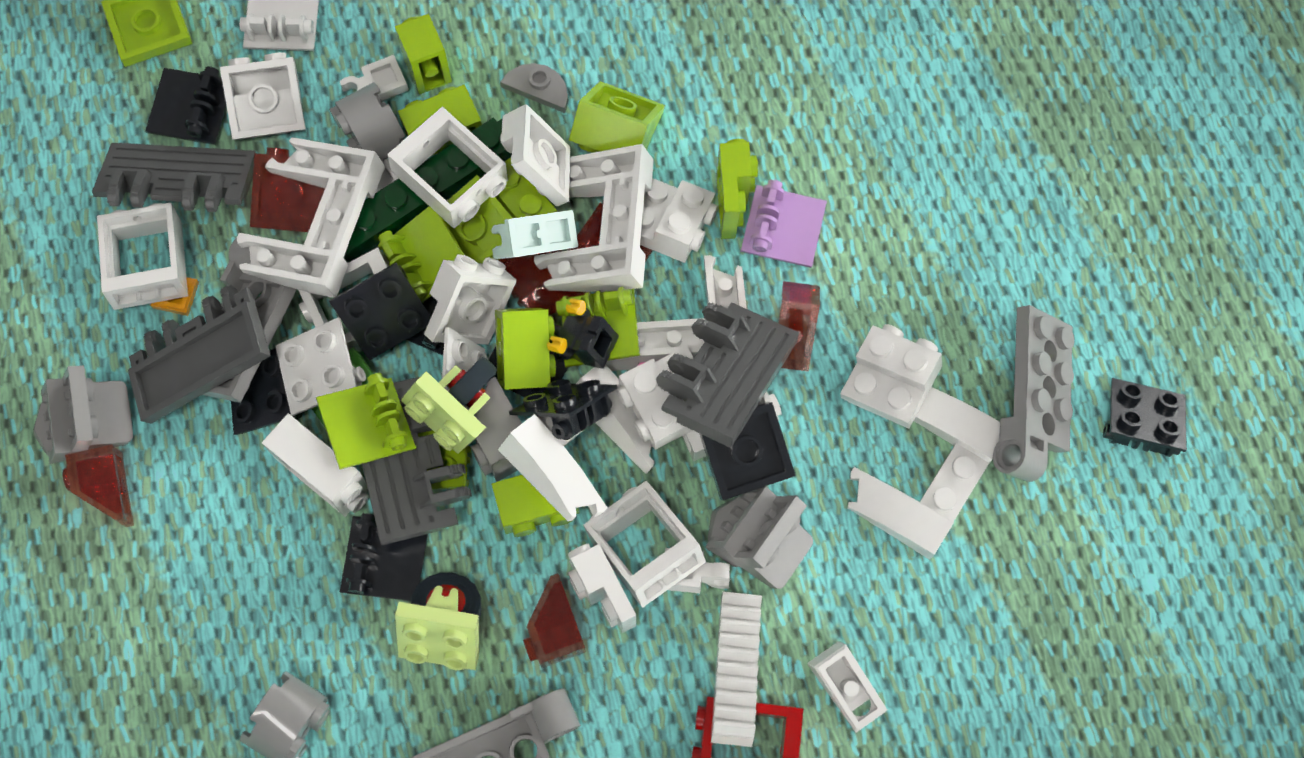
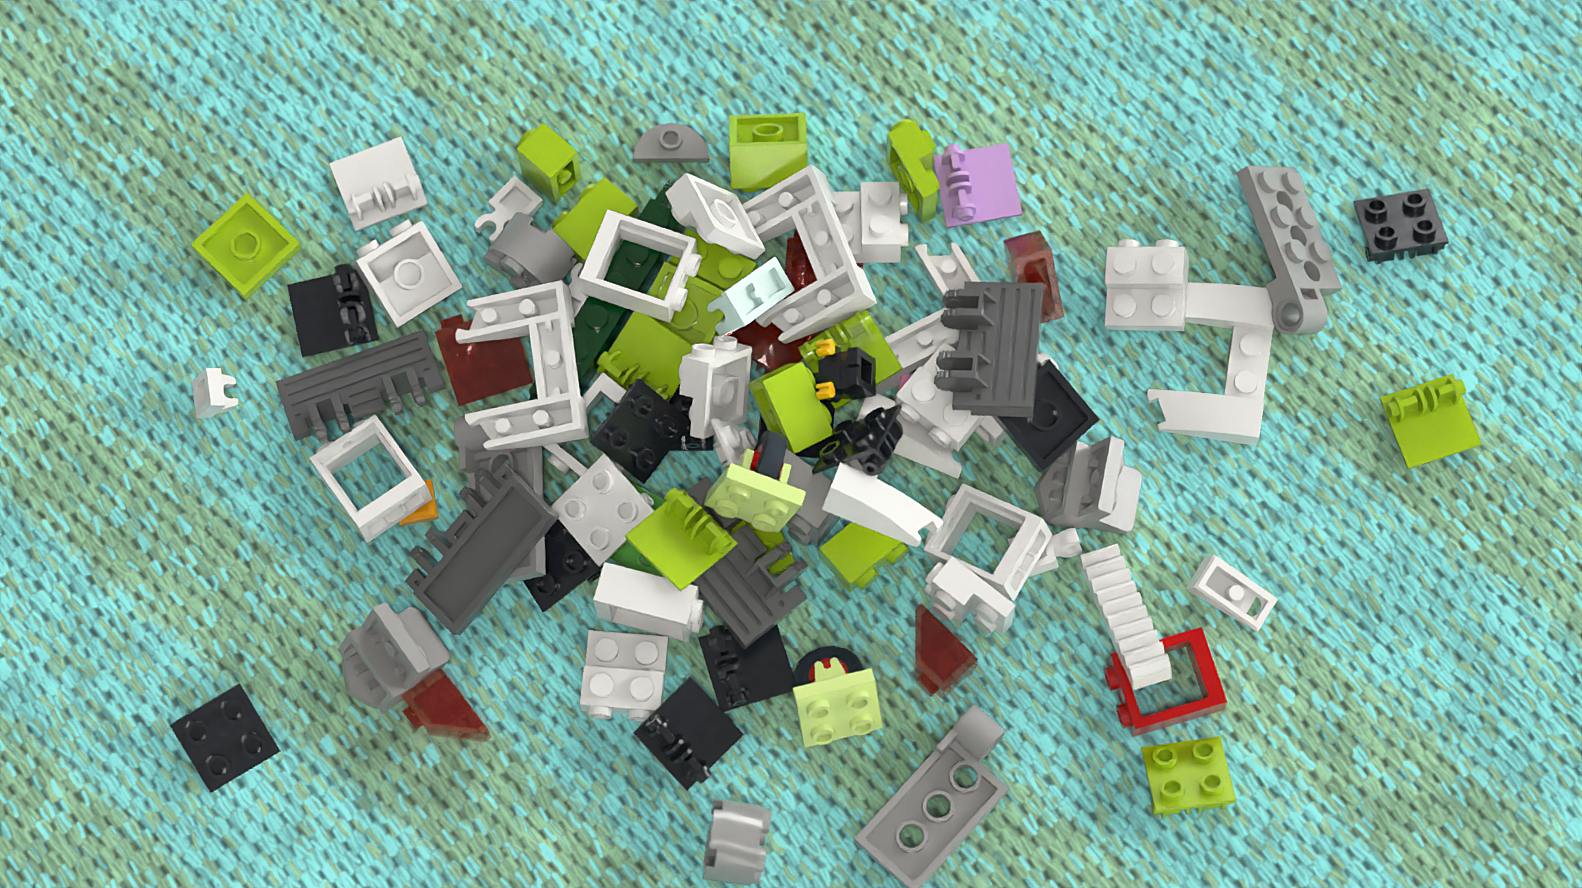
camera: 20 degrees left, 0 degrees up
(54, 123) = (209, 393): none -> white tile
(271, 521) = (623, 674): none -> white plate
(298, 600) = (688, 734): none -> black hinge
(1100, 606) = (1431, 420): none -> lime hinge

